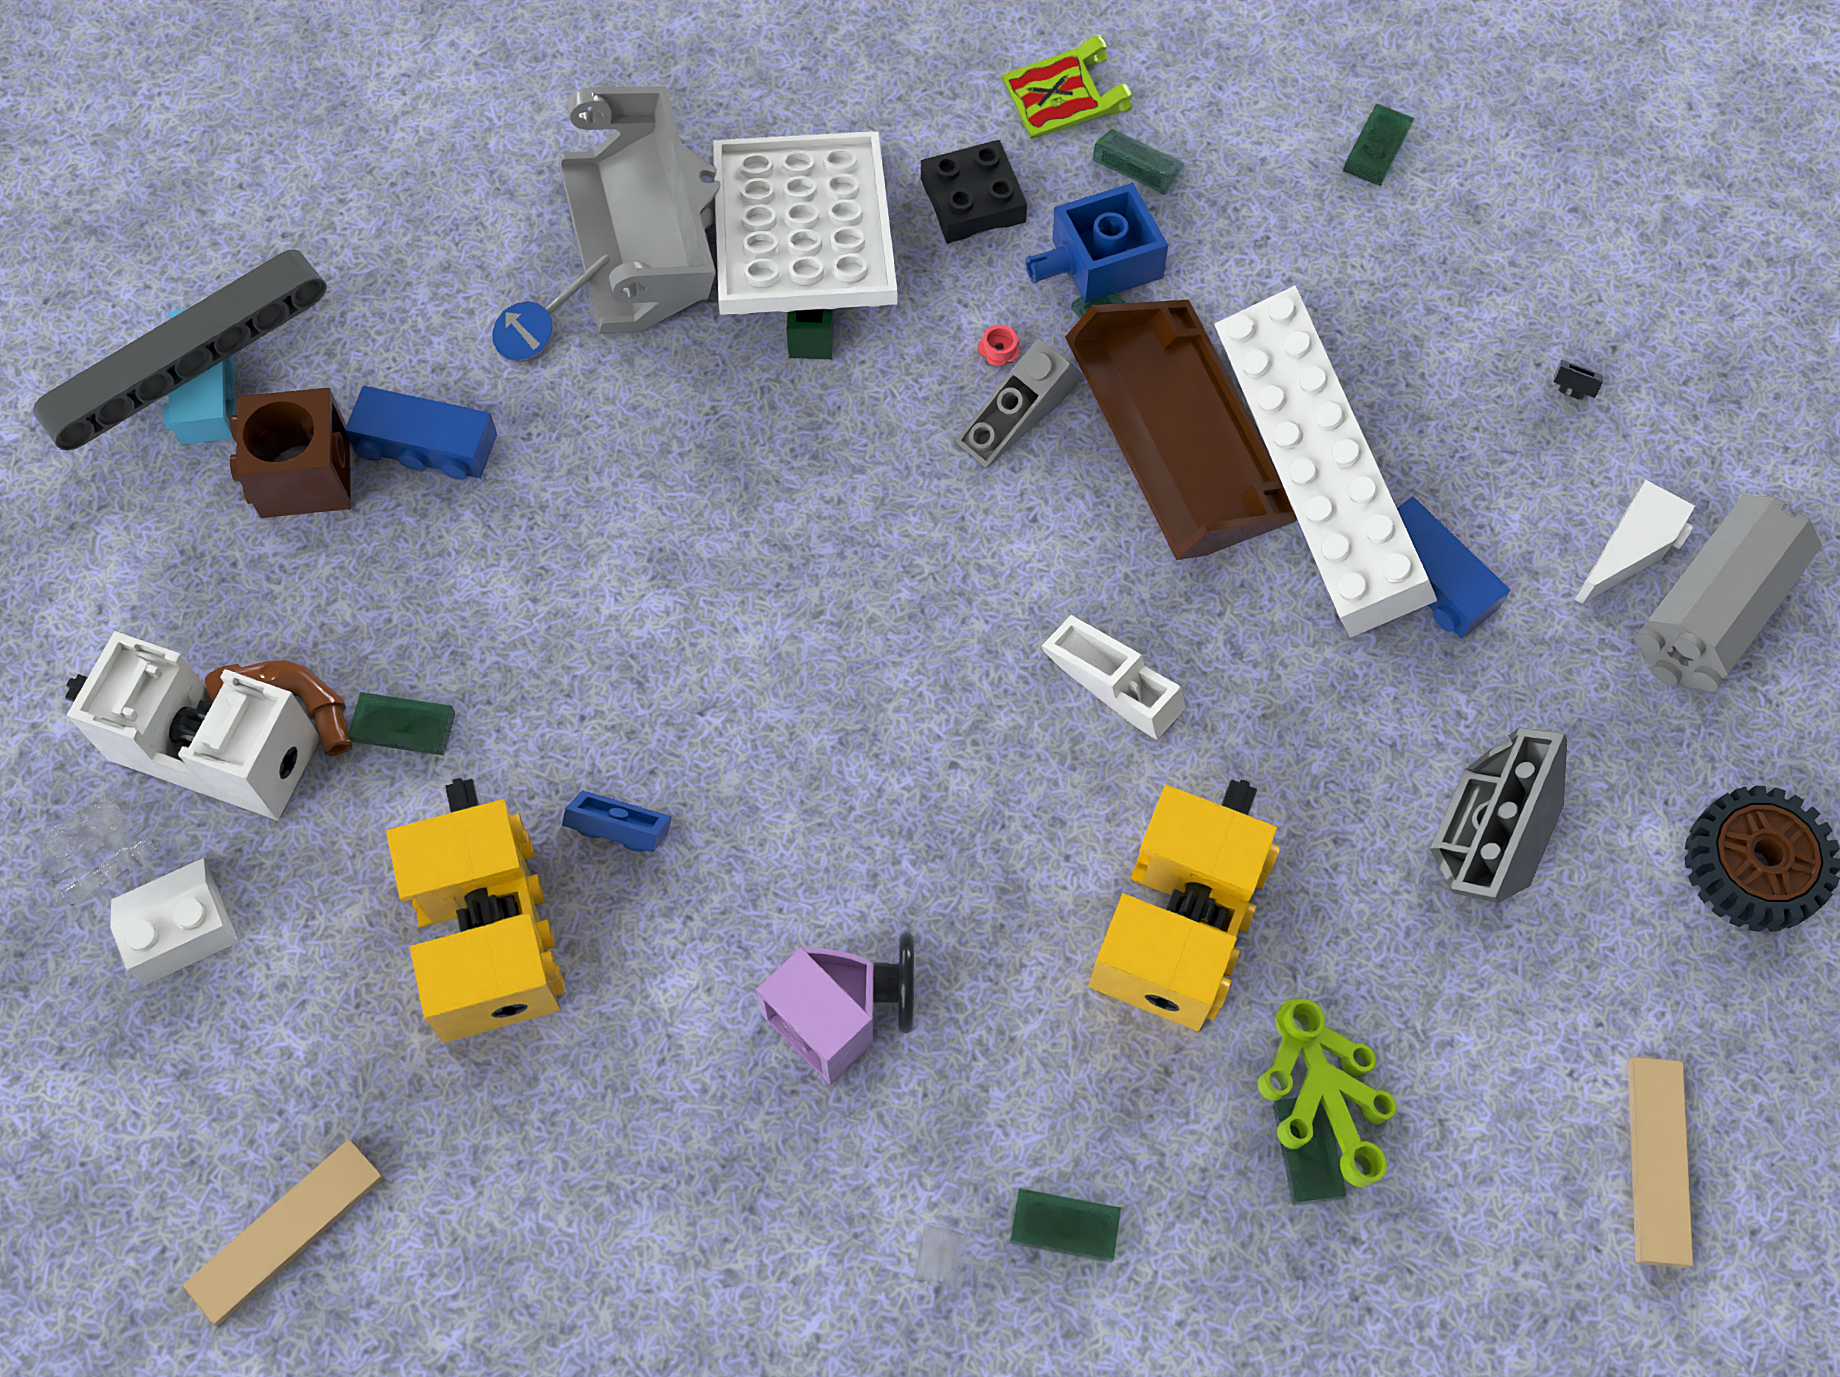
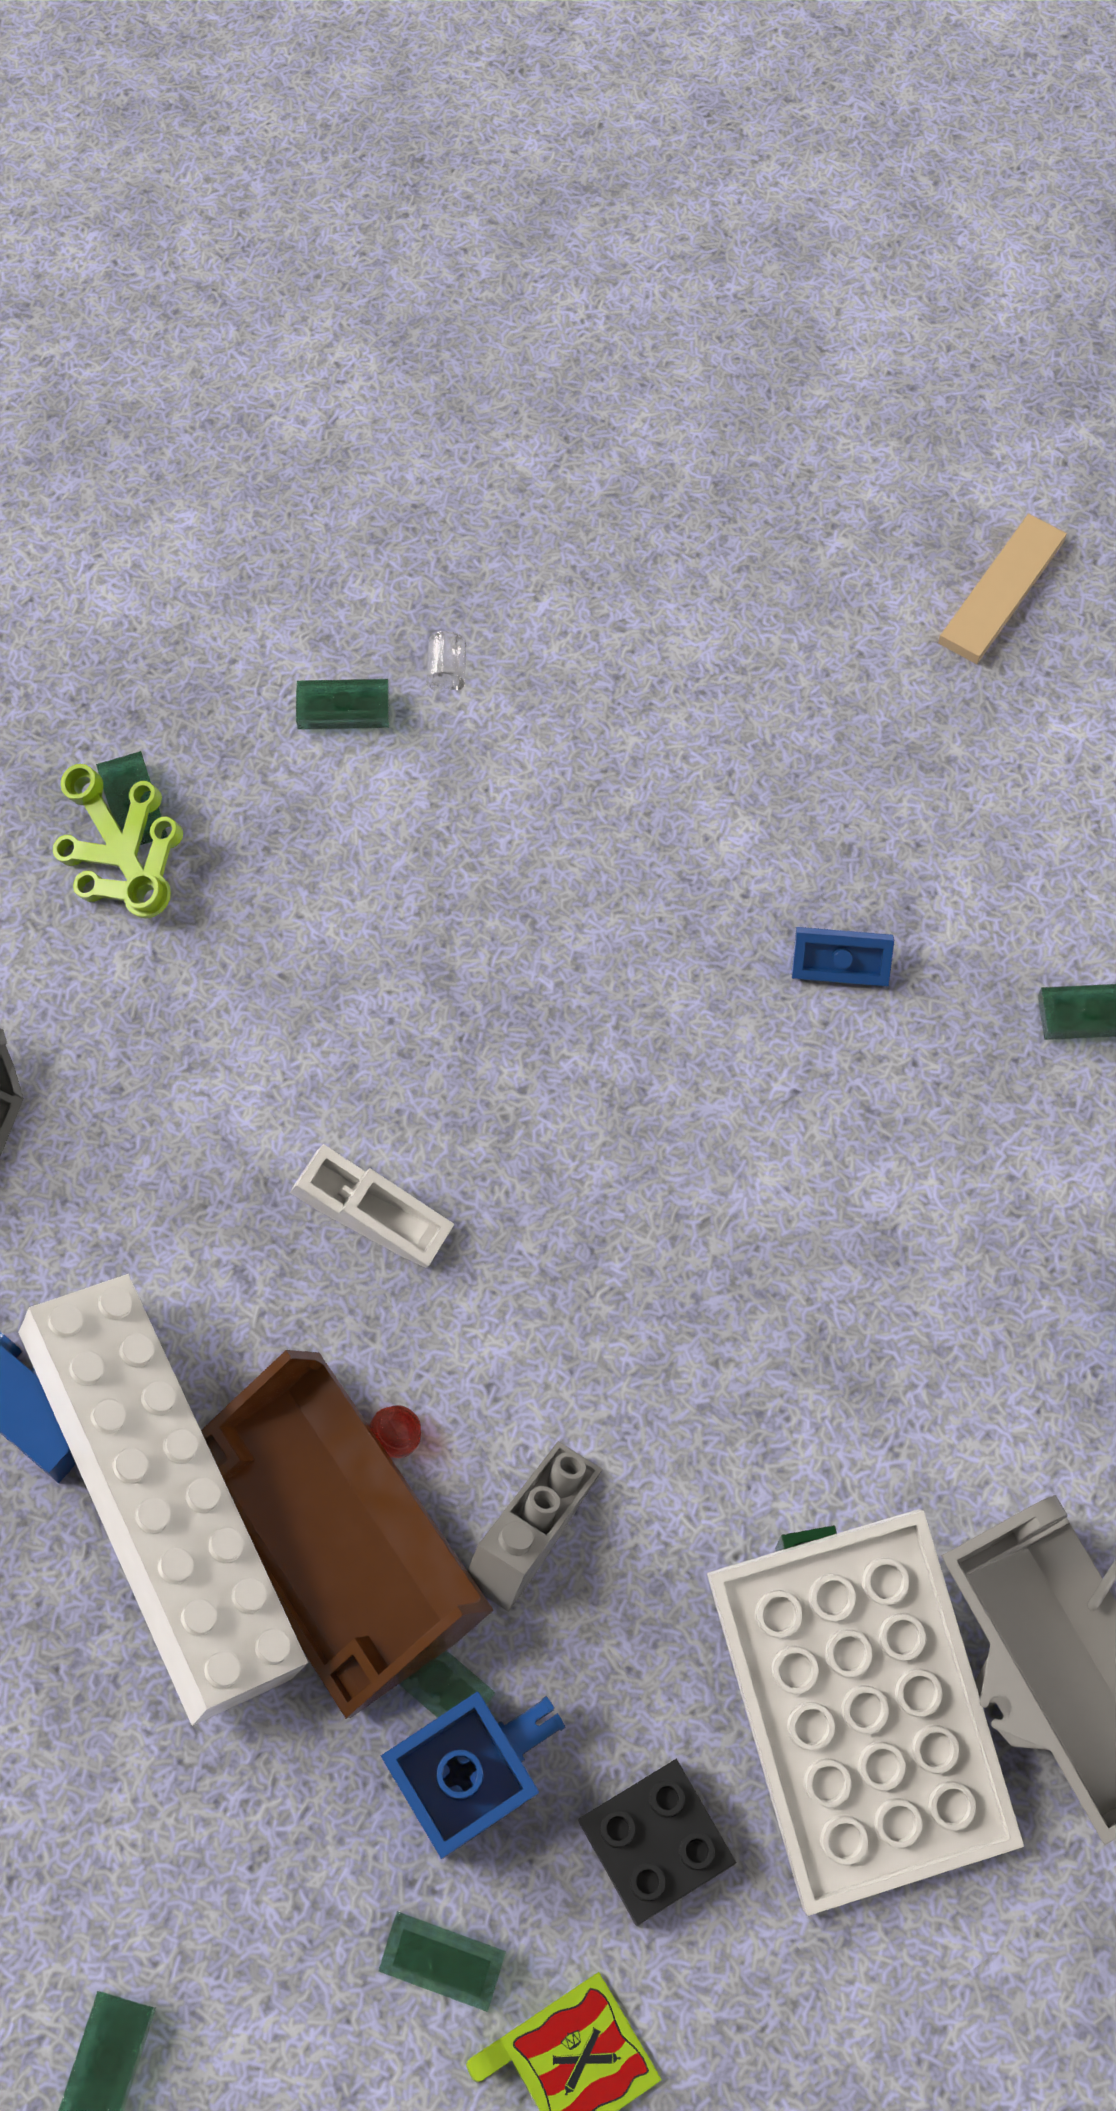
camera: 170 degrees right, 0 degrees up
(476, 871) = (948, 869): yellow piece -> none
(827, 1001) = (592, 815): lavender piece -> none
(1002, 336) = (574, 1592): coral plate -> none
(1119, 491) = (397, 1430): none -> clear red plate
(1210, 866) = (242, 996): yellow piece -> none

